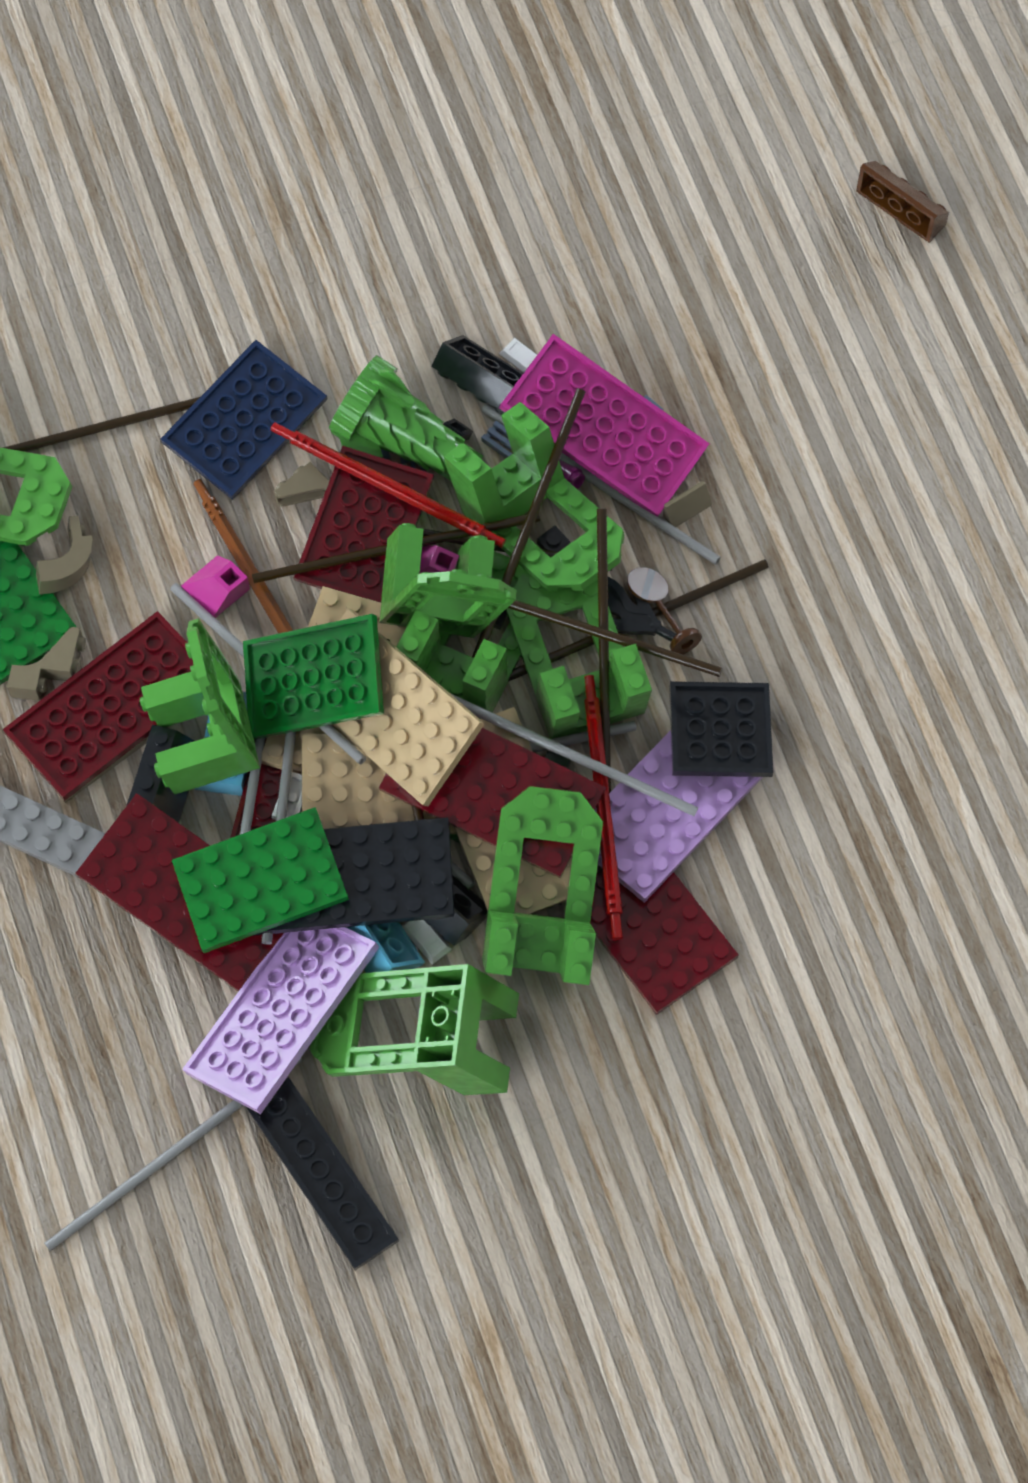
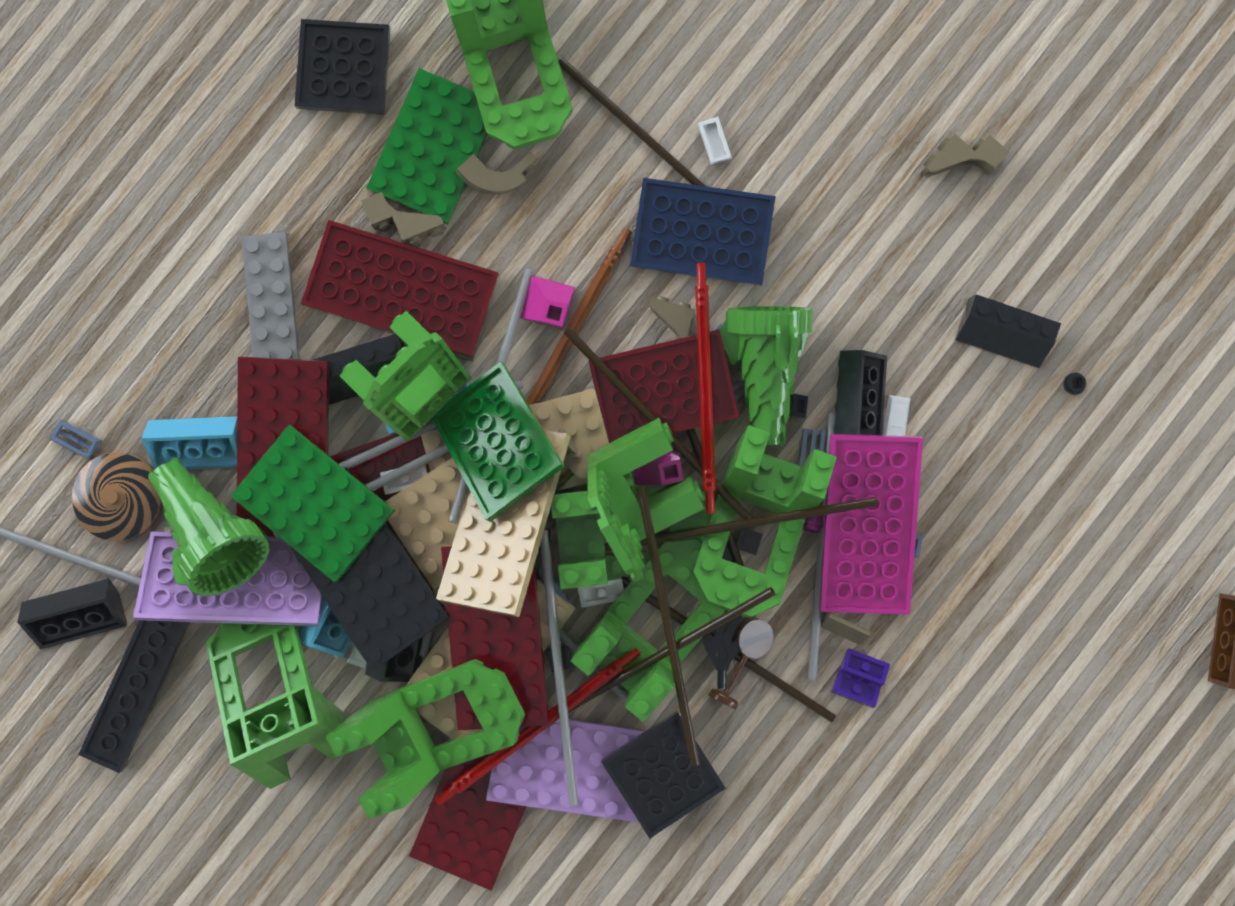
camera: 55 degrees right, 20 degrees up
(48, 1100) = (92, 447): none -> sand blue tile
(126, 976) = (194, 441): none -> medium azure slope
(126, 1085) = (116, 497): none -> dish
(169, 365) = (714, 140): none -> white tile
(212, 1191) = (72, 614): none -> black slope
(228, 981) = (213, 546): none -> bright green cone
(321, 179) = (955, 152): none -> dark tan arch
(506, 226) = (1007, 331): none -> black slope
(515, 691) = (602, 593): none -> white plate
(591, 194) = (1080, 380): none -> black plate
(743, 519) = (860, 678): none -> dark purple slope

